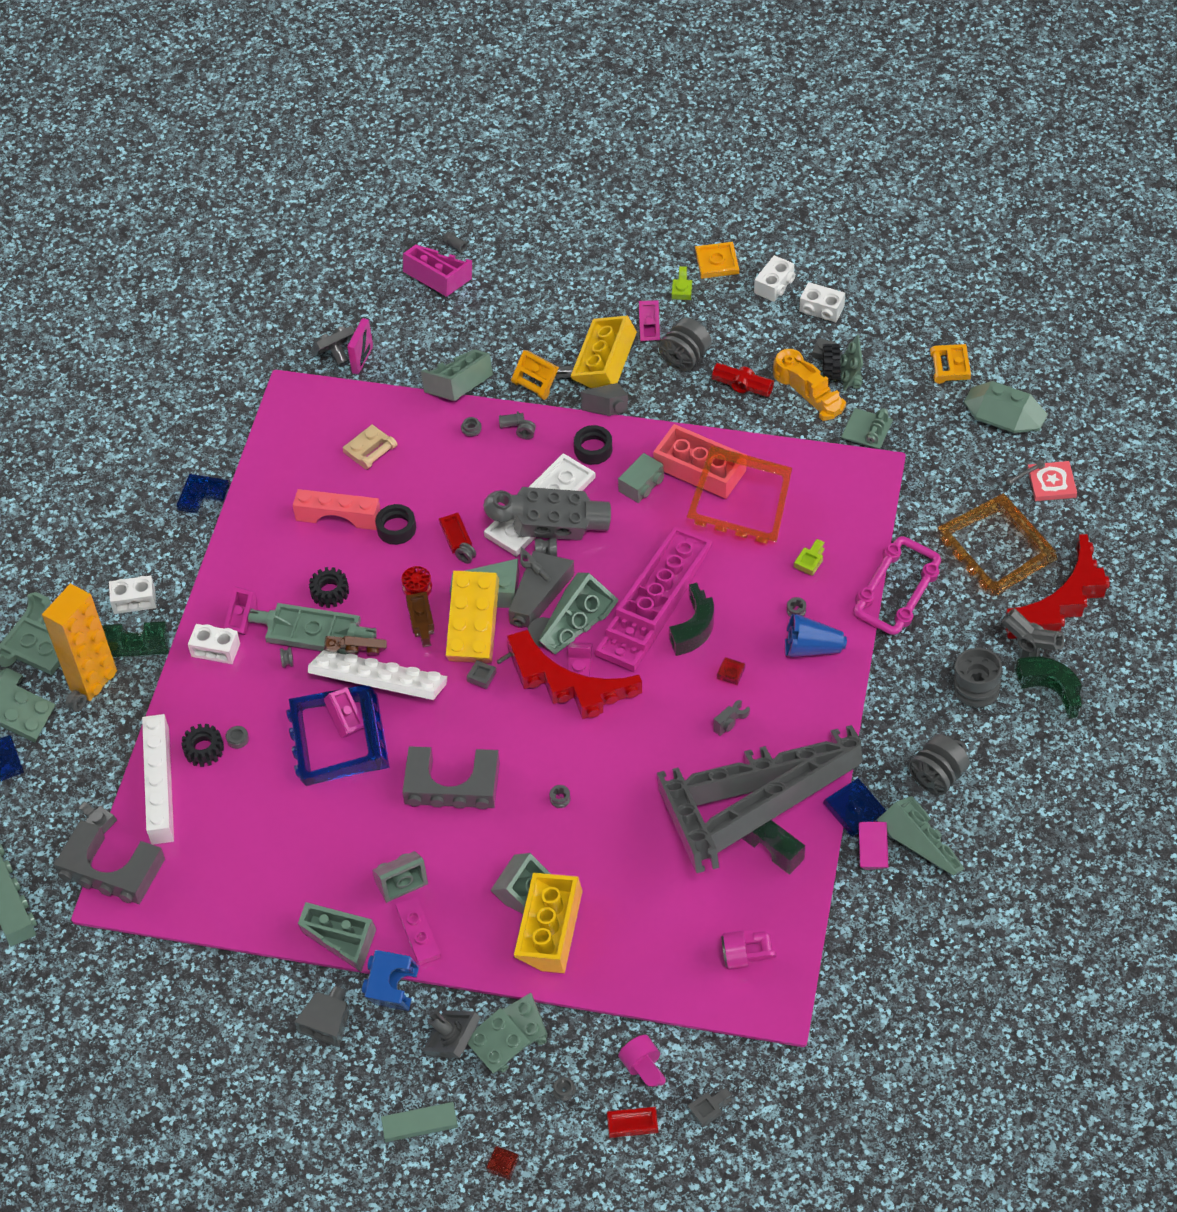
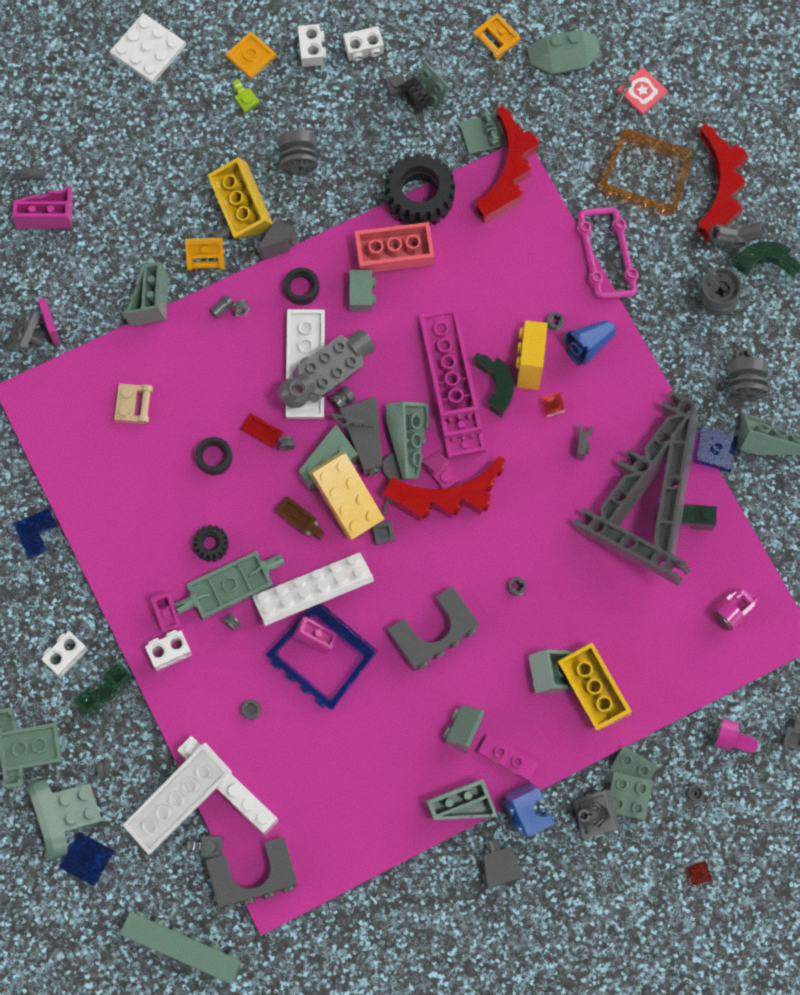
camera: 45 degrees left, 20 degrees up
(79, 641) = (89, 731): light orange brick -> none
(106, 755) = (177, 798): none -> white plate
(202, 734) = (231, 723): black tyre -> none
(355, 644) = (277, 578): reddish brown hinge -> none
(359, 510) = (144, 482): coral arch -> none
(416, 582) = (272, 493): red wheel -> none
(419, 1122) = (623, 888): sand green tile -> none
(471, 426) = (196, 328): dark grey plate -> none
(632, 1122) = (754, 781): red tile -> none
(634, 208) = (147, 48): none -> white plate
(649, 320) = (249, 147): dark pink slope -> none
(742, 379) = (360, 152): red piece -> none
(745, 616) = (531, 354): none -> yellow wedge
(751, 462) = (440, 228): clear orange windscreen -> none
(765, 411) = (419, 168): none -> black tyre
(806, 379) = (409, 122): light orange piece -> none
(810, 560) = (534, 276): lime plate -> none
(844, 479) = (506, 191): none -> red arch
(873, 845) = (751, 469): dark pink slope -> none

